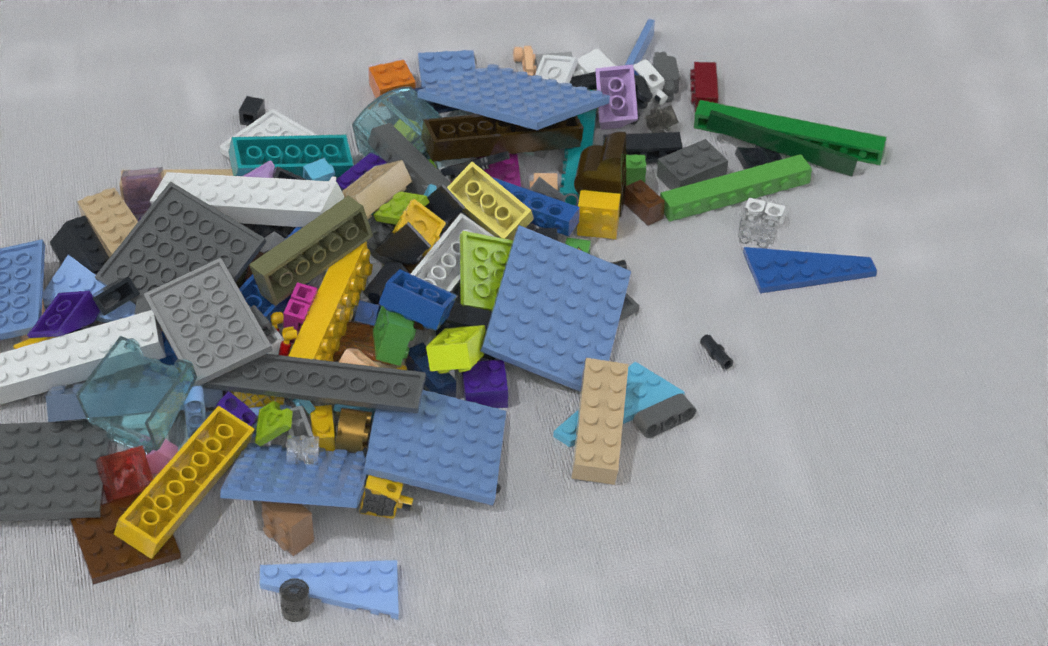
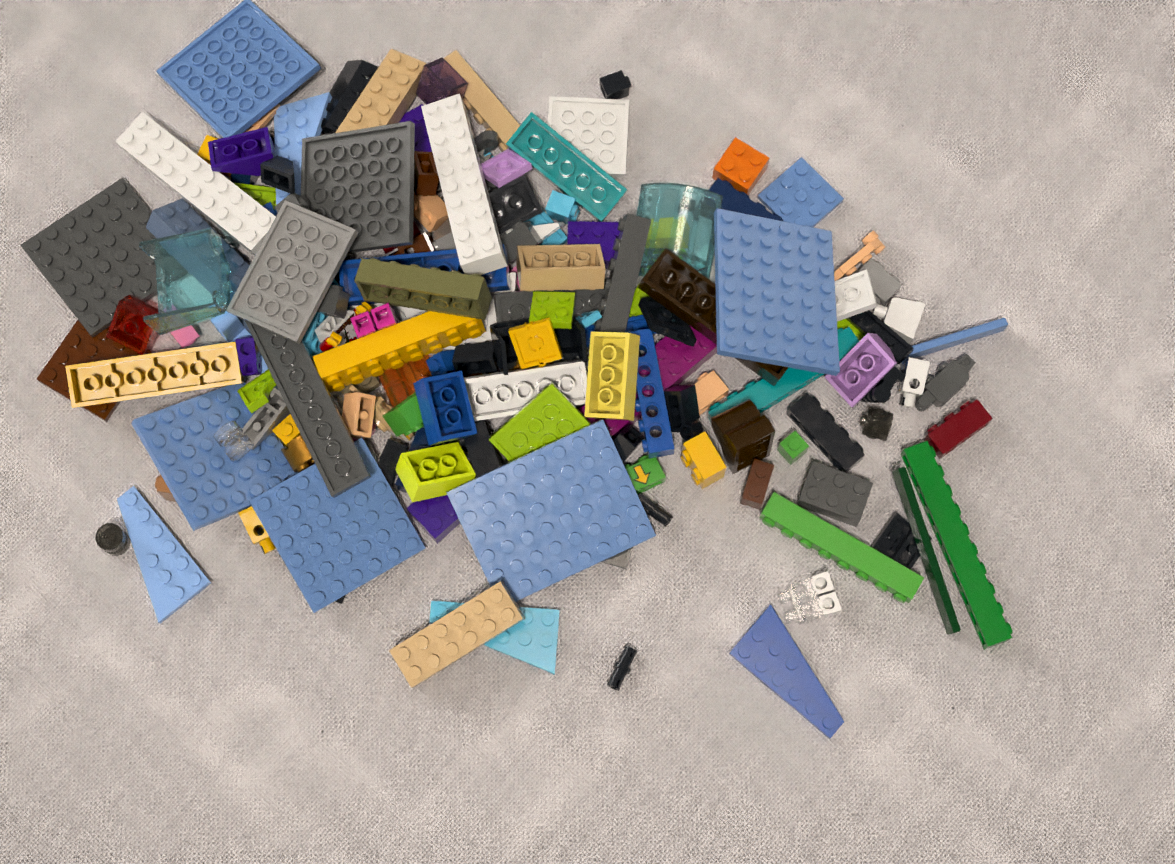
camera: 55 degrees right, 30 degrees up
(664, 415) = (513, 677): dark grey beam -> none

